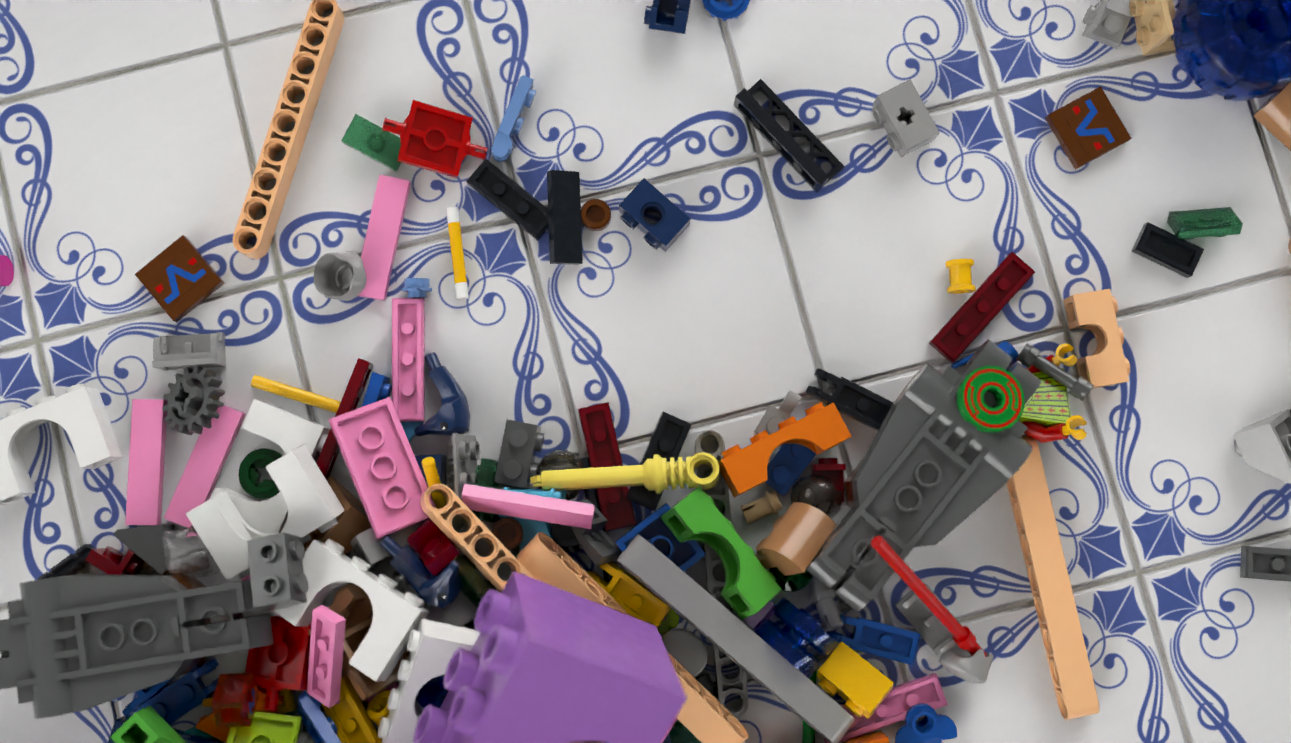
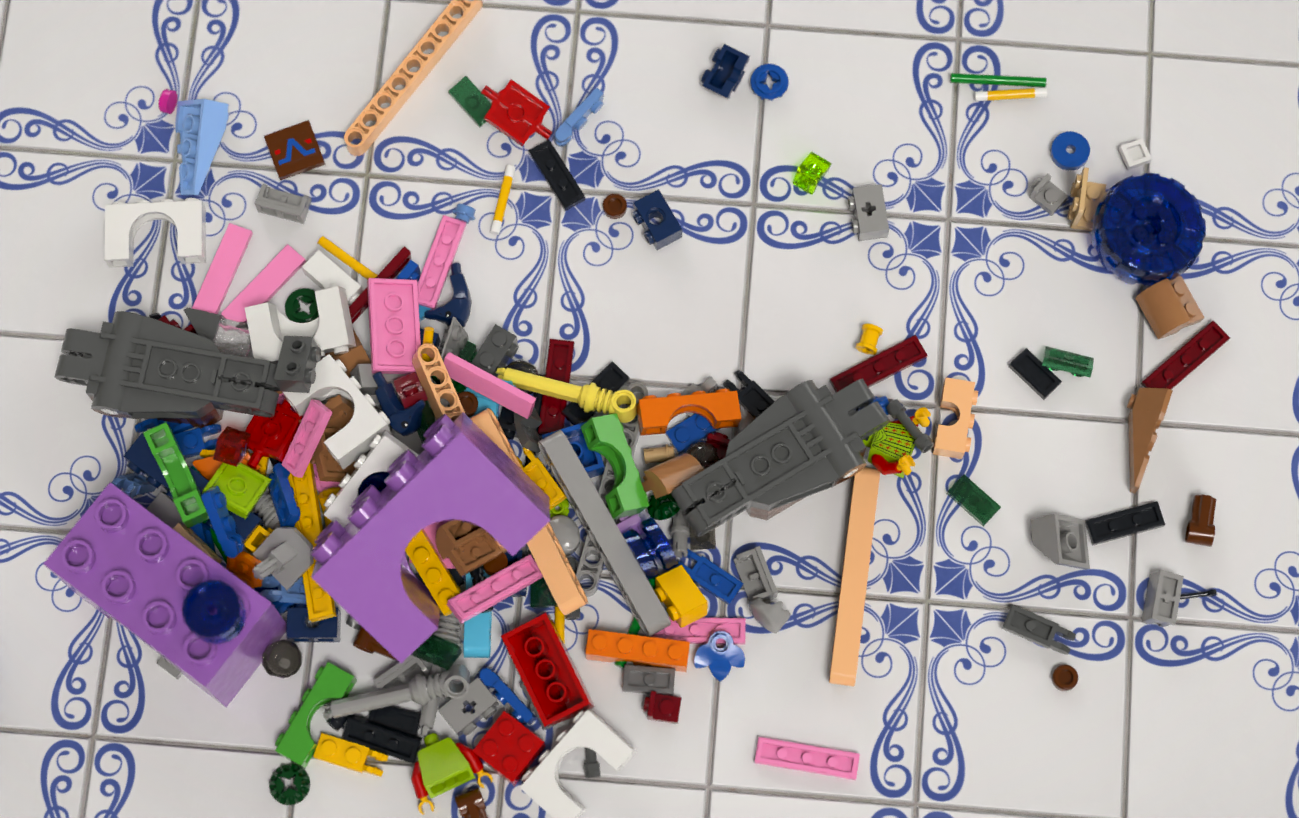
camera: 20 degrees right, 10 degrees down
(55, 292) = (201, 130): none -> light blue wedge
(193, 400) = (273, 237): dark grey gear -> none
(340, 275) = (412, 185): light grey hair -> none
(383, 235) = (451, 170): bright pink tile -> none
(564, 217) = (590, 199): black tile -> none
(783, 140) = (773, 199): black fence -> none
(817, 93) = (811, 172): none -> clear neon green bracket
(961, 634) = (770, 587): red bar -> none
(1005, 388) = (854, 406): green tile -> none
(1088, 128) = (1007, 265): reddish brown tile -> none
(1152, 431) = (973, 500): none -> clear green plate

